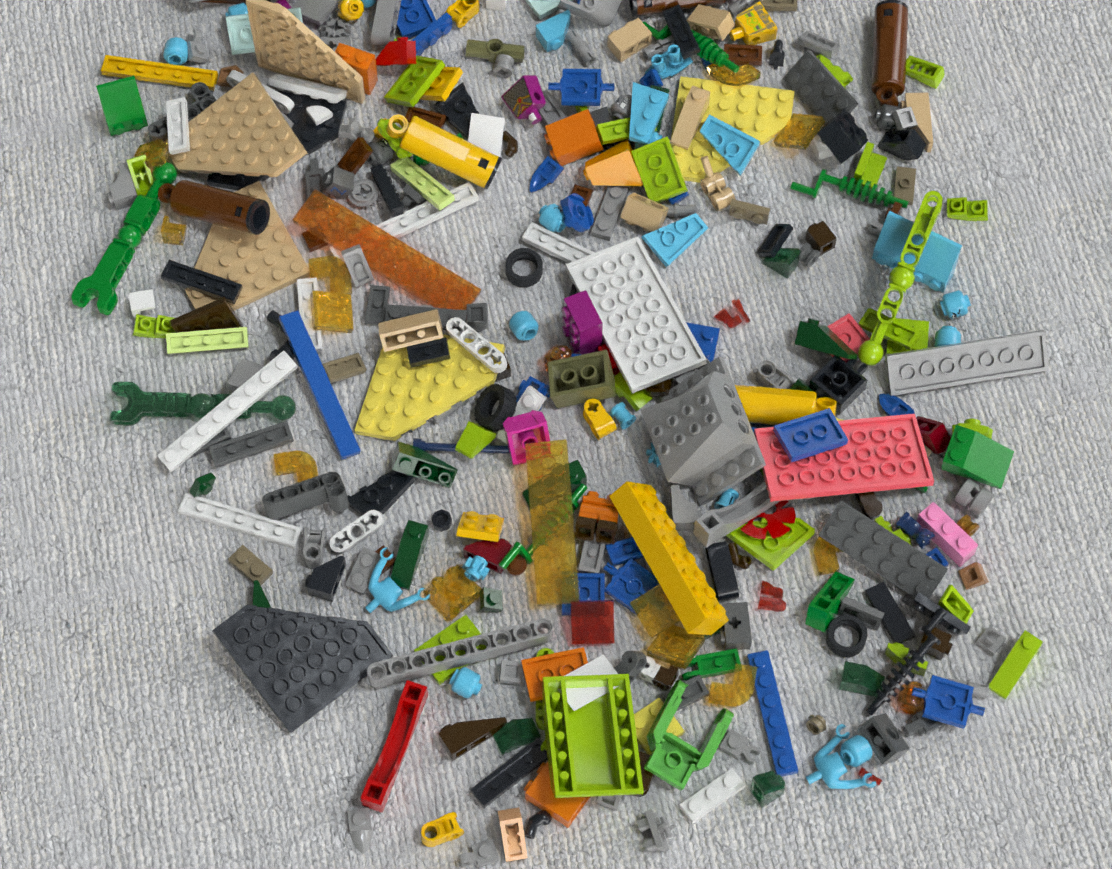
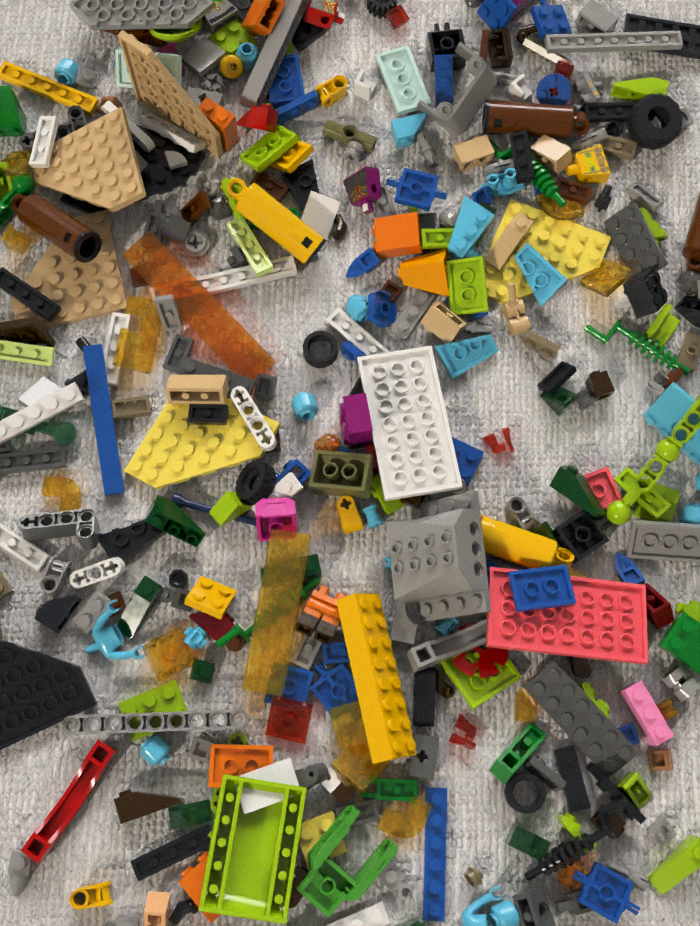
camera: 10 degrees right, 10 degrees up
(387, 190) = (217, 246): black piece -> none
(447, 536) = (177, 598): none -> dark grey plate
(557, 262) = (351, 352): none -> blue plate
(914, 530) = (615, 702): dark blue animal -> none

